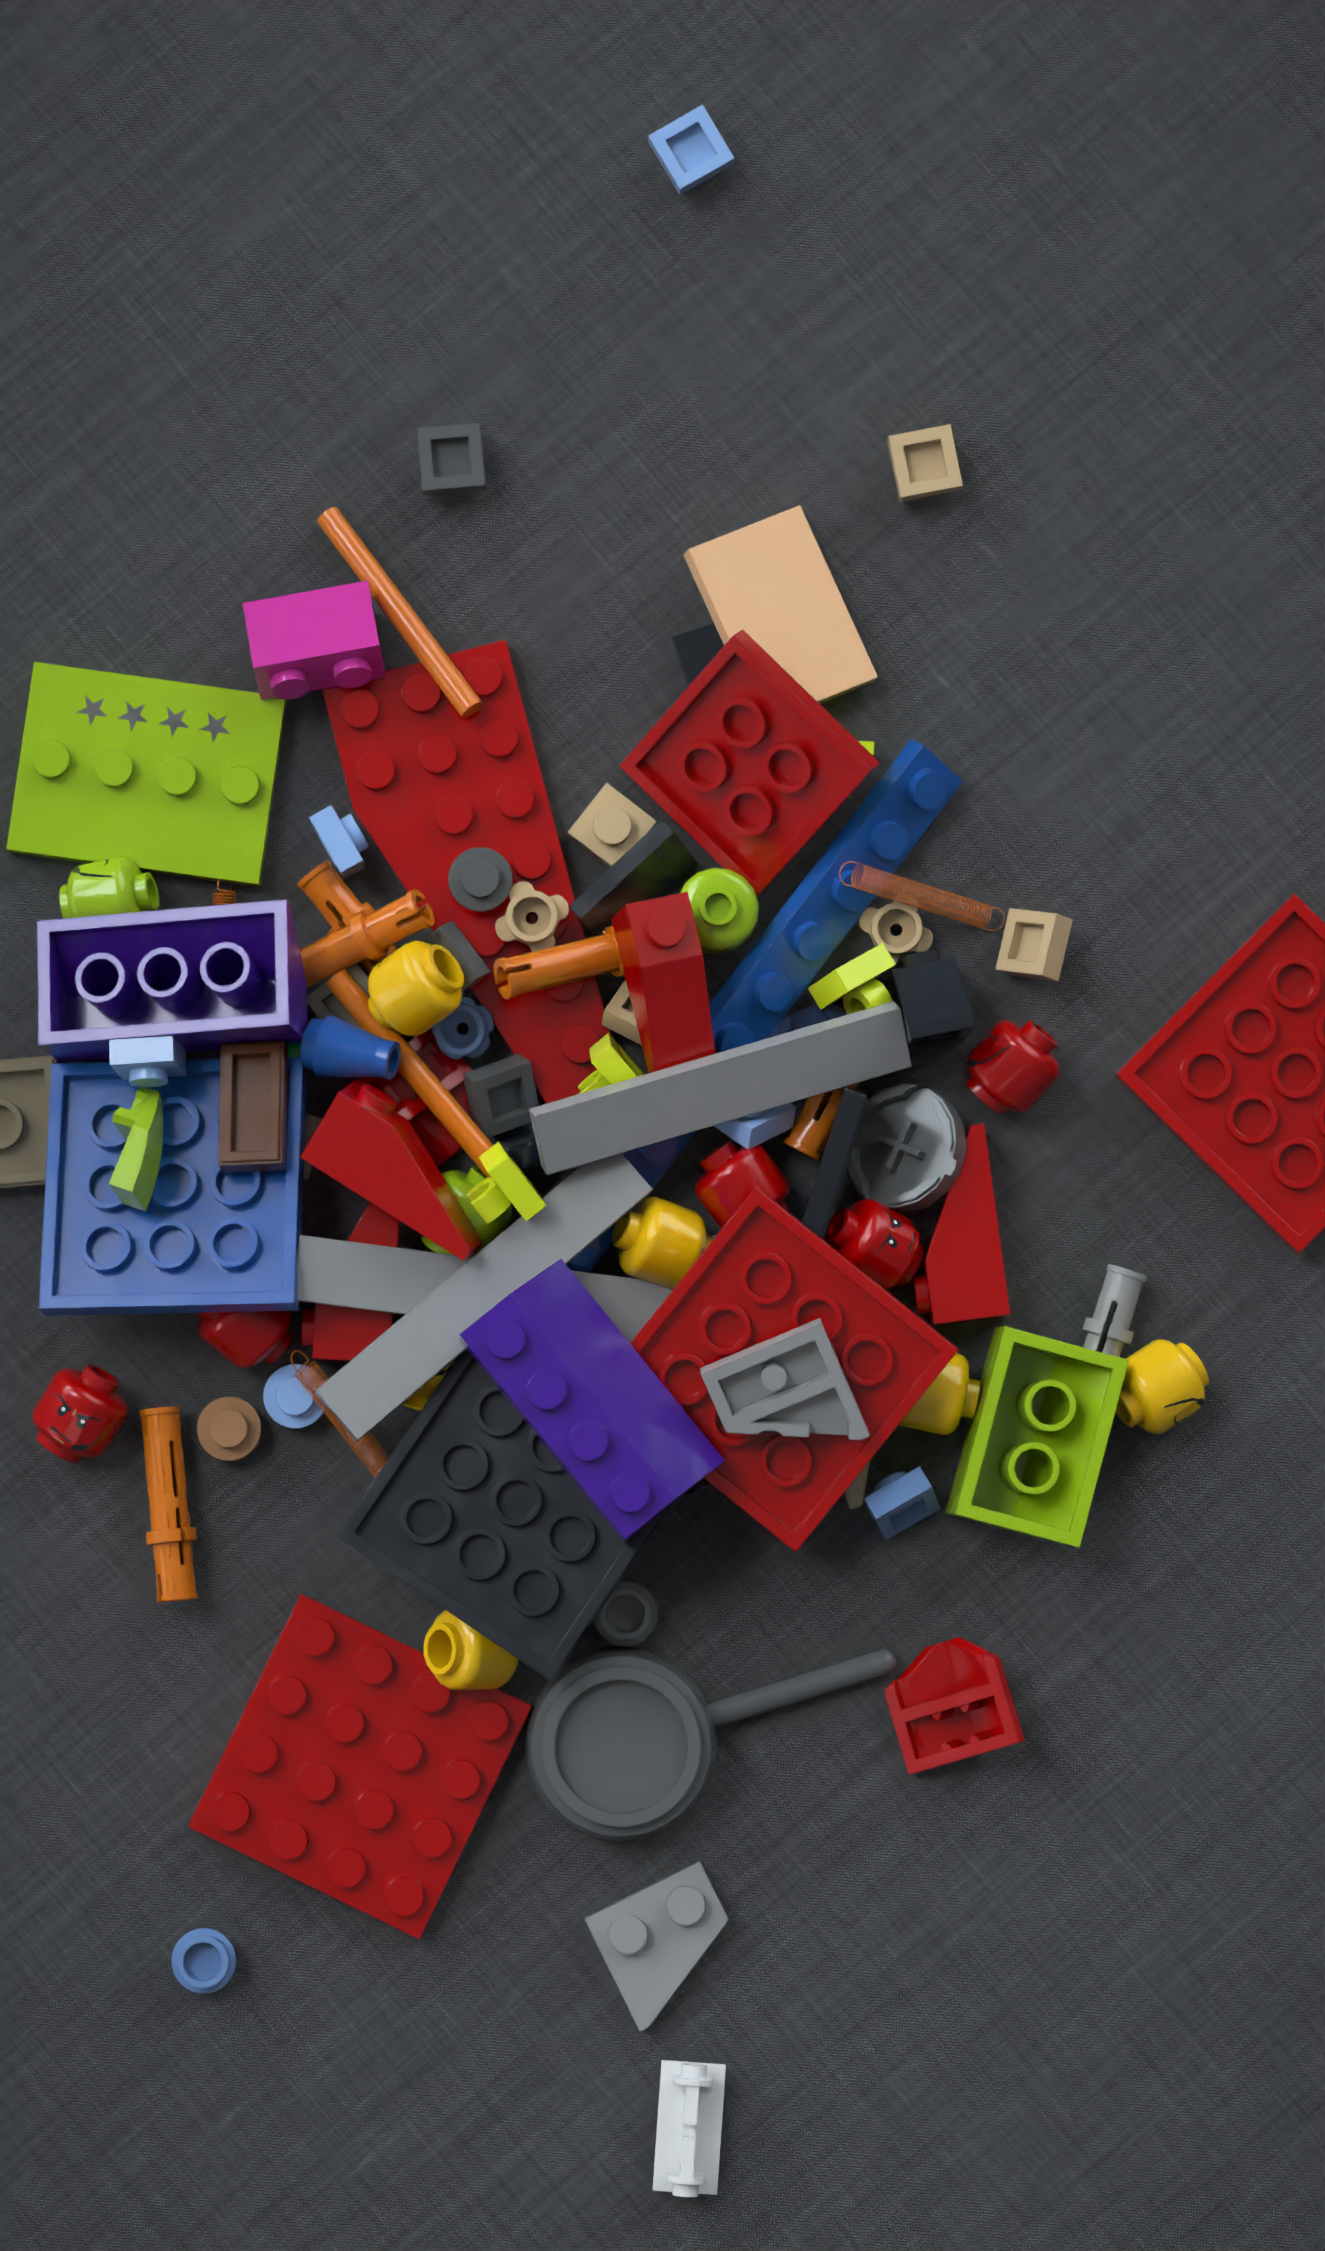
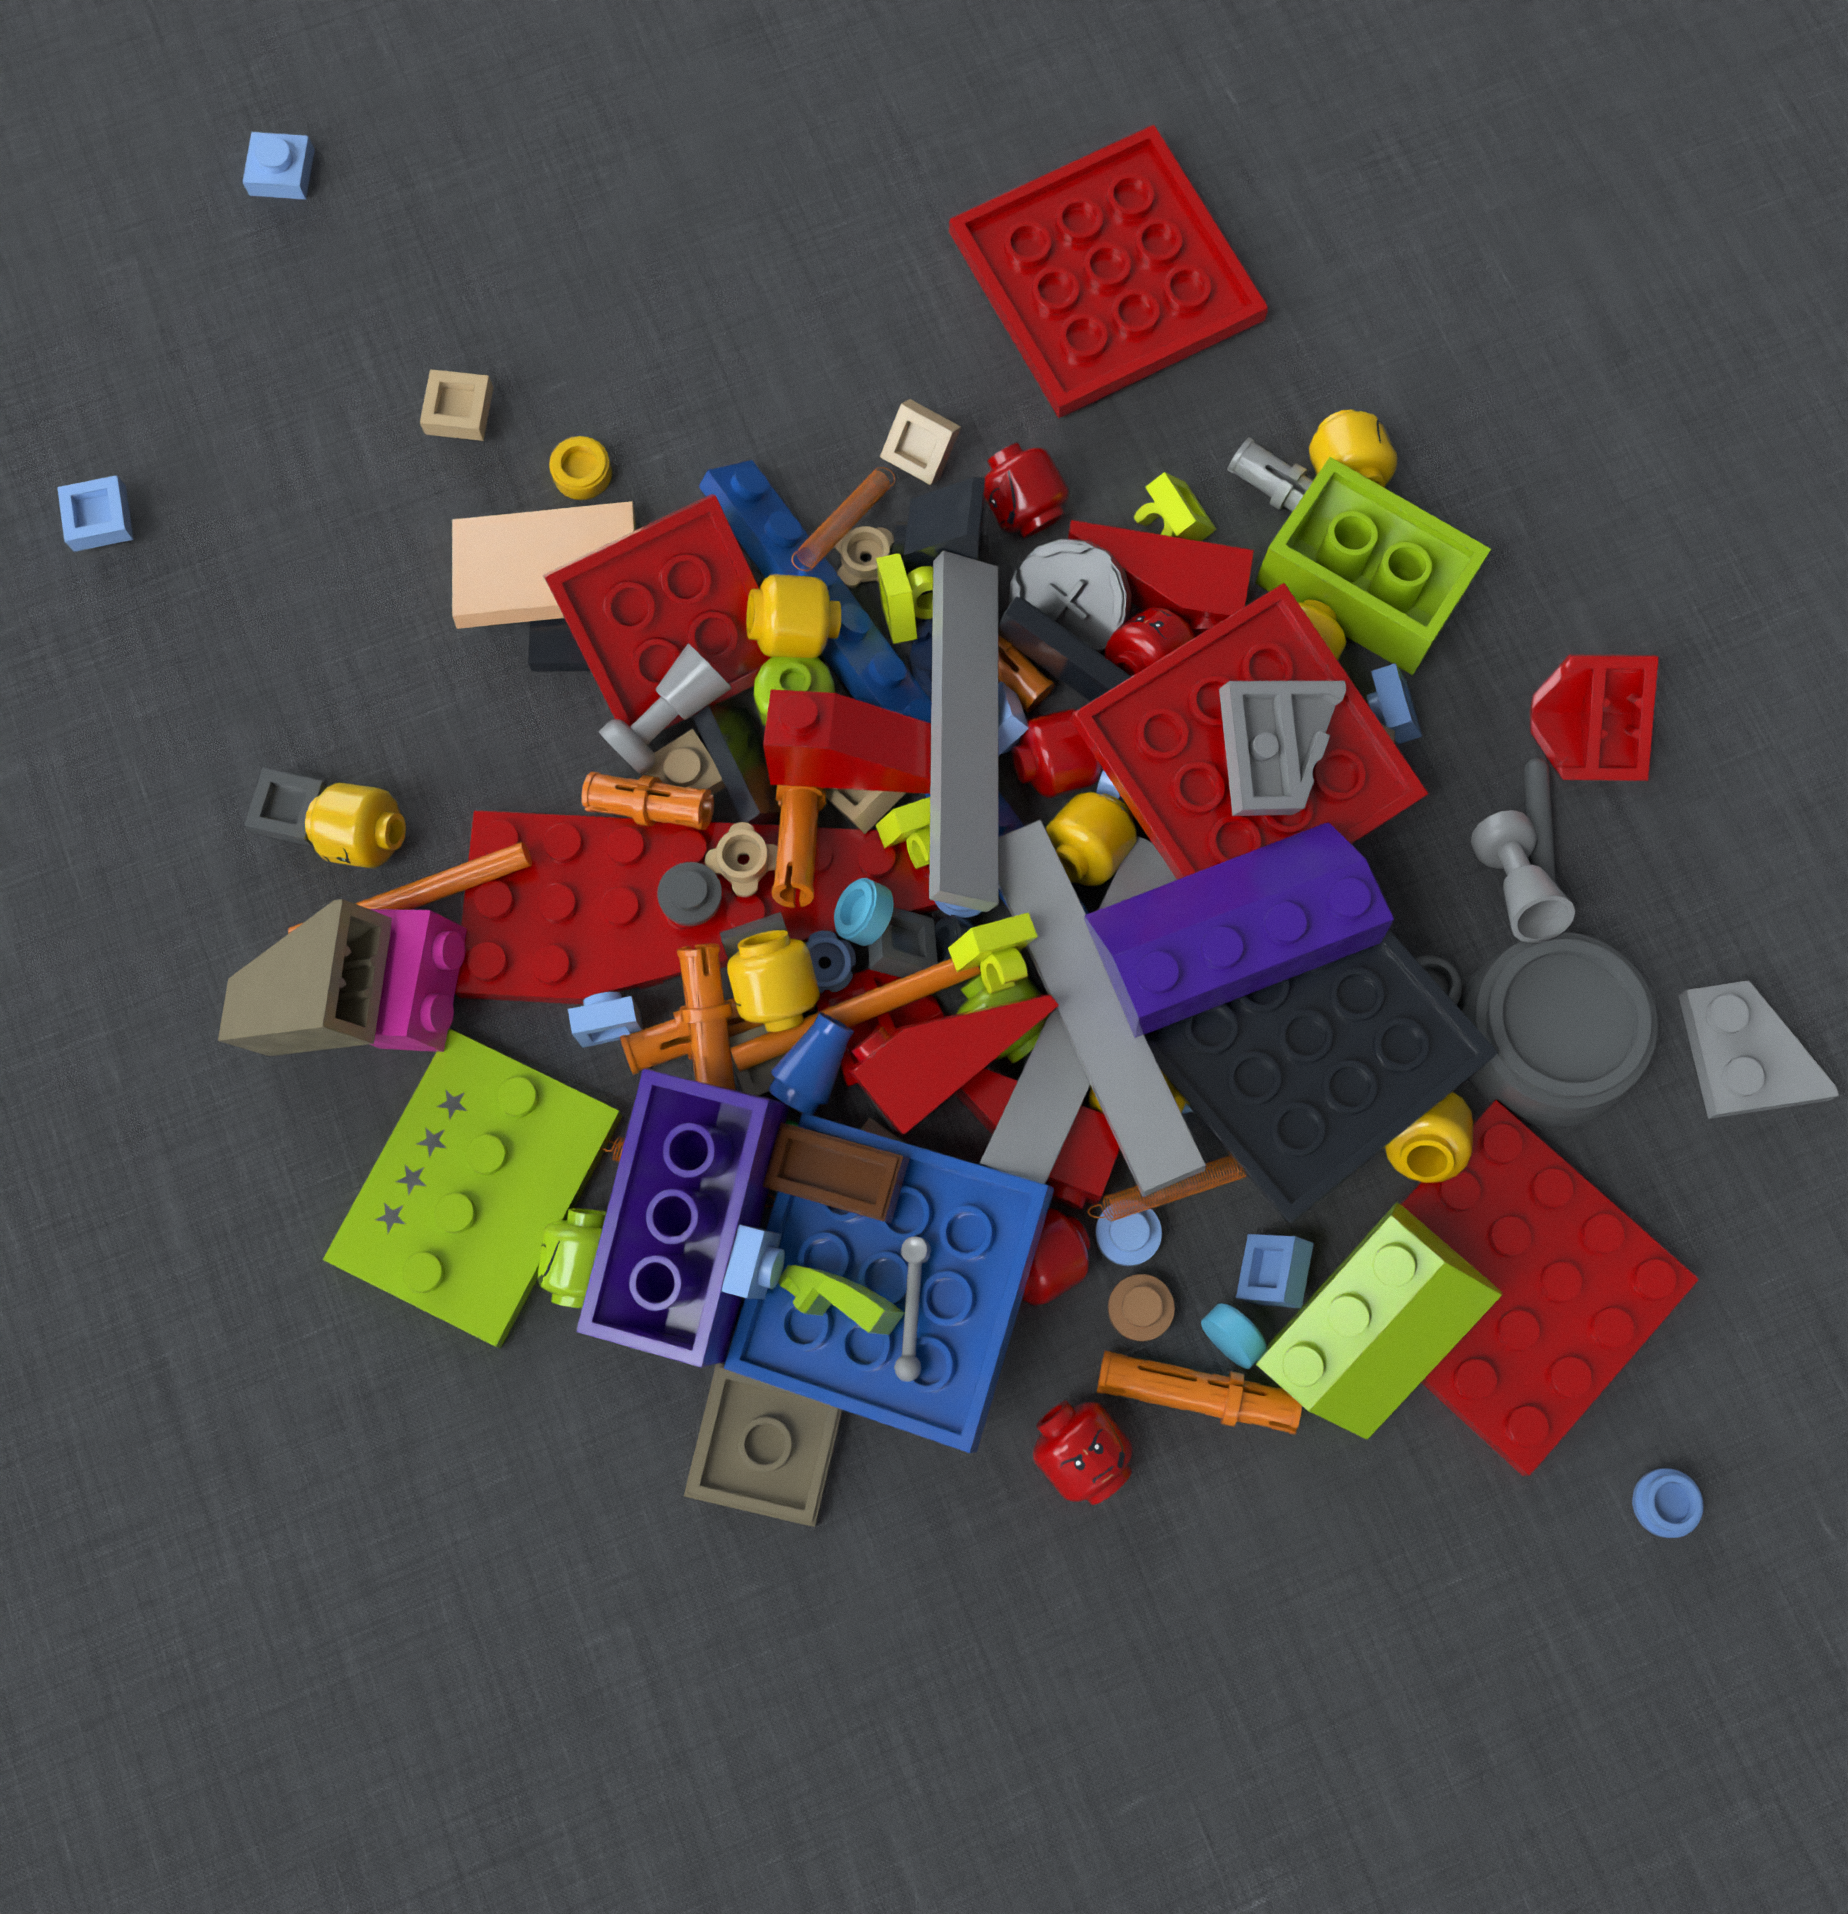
camera: 65 degrees left, 10 degrees down
(200, 1202) = (915, 1252): none -> light grey hinge
(230, 1521) = (1234, 1335): none -> medium azure tile
(274, 561) = (311, 986): none -> dark tan slope
(274, 1645) = (1378, 1324): none -> lime slope
(300, 1541) = (1274, 1270): none -> medium blue plate
(451, 533) = (355, 825): none -> yellow head
(516, 1050) = (863, 911): none -> medium azure tile
(563, 805) = (648, 800): none -> orange pin
(680, 804) = (683, 691): none -> light grey piece
(730, 1680) = (1533, 900): none -> light grey piece
(782, 884) = (792, 616): none -> yellow head
(902, 610) = (580, 467): none -> yellow tile
(1043, 1228) = (1178, 508): none -> neon yellow tile
(1140, 173) = (278, 165): none -> light blue plate

